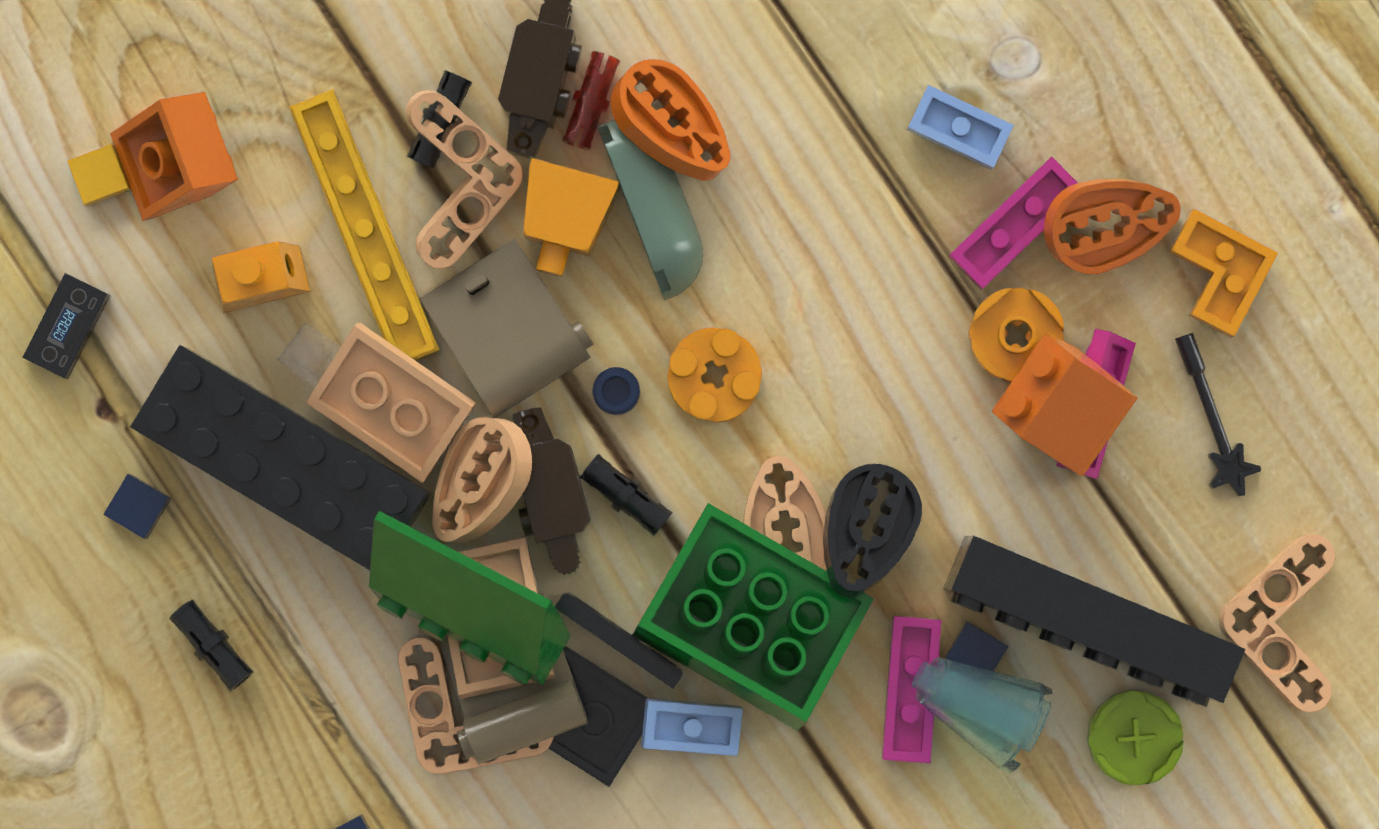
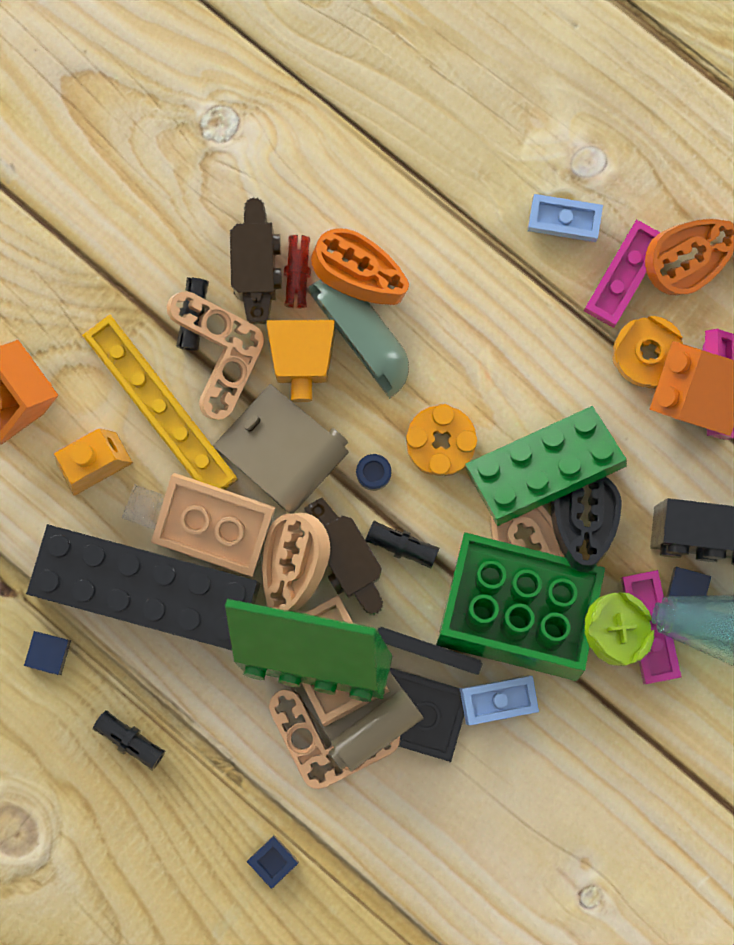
camera: 15 degrees left, 5 degrees down
(837, 445) = (545, 465): none -> plate
(867, 681) = (619, 629): none -> lime tile

